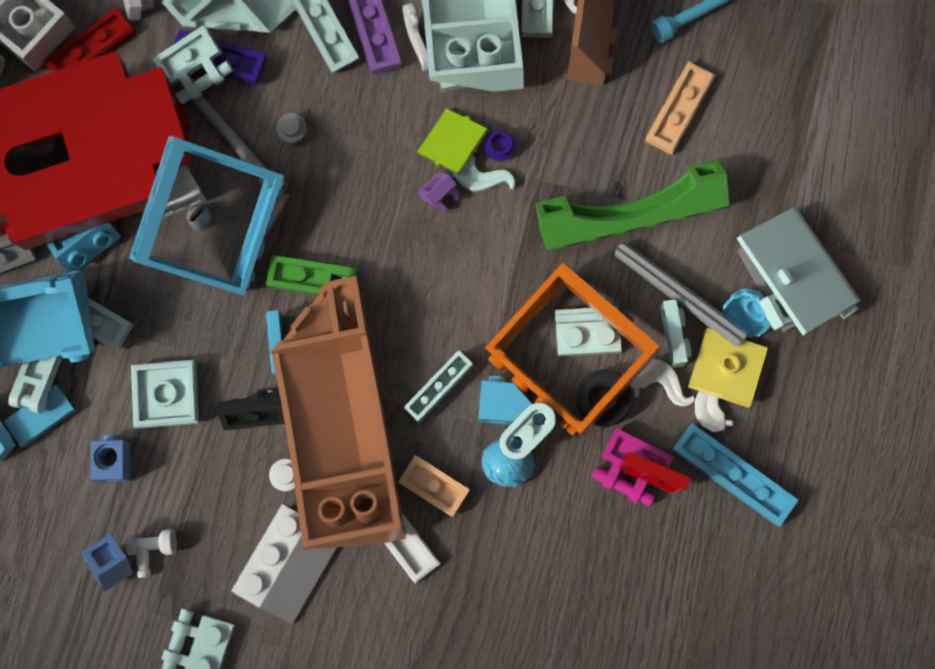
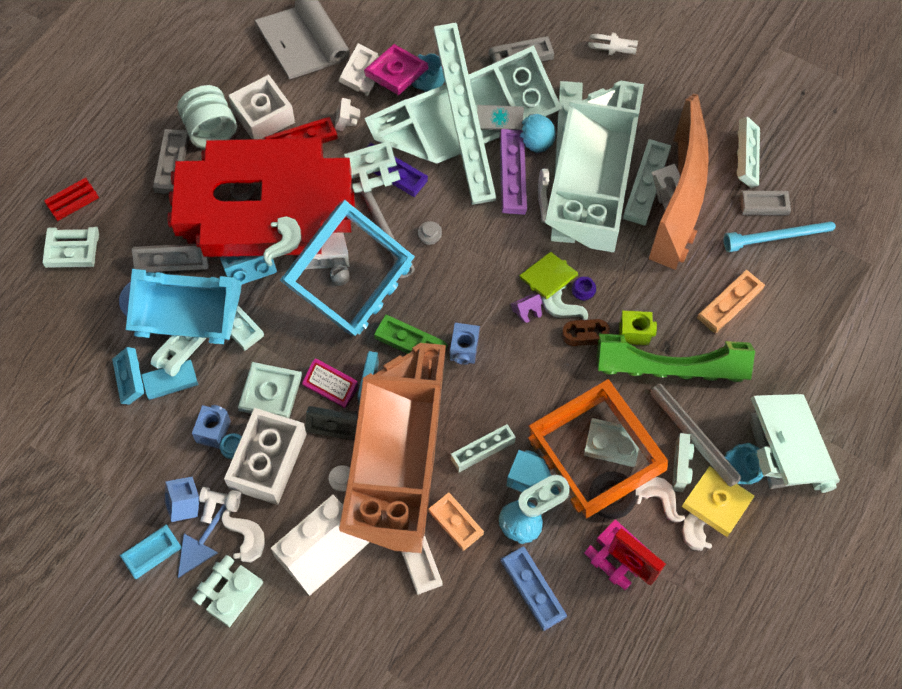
camera: 10 degrees right, 15 degrees down
(93, 631) = (150, 551): none -> medium azure tile
(124, 200) = (291, 239): none -> light aqua piece
(143, 614) = (195, 551): none -> medium blue piece
(144, 475) = (229, 445): none -> medium azure plate
(187, 479) = (265, 456): none -> white brick
(205, 574) = (253, 537): none -> white piece
(233, 362) = (330, 383): none -> slope
(376, 250) = (464, 334): none -> medium blue brick
(513, 195) = (584, 331): none -> reddish brown beam
(545, 536) = (533, 588): none -> medium blue tile
(572, 191) = (637, 318): none -> lime brick
(735, 475) = (702, 586): medium azure plate -> none

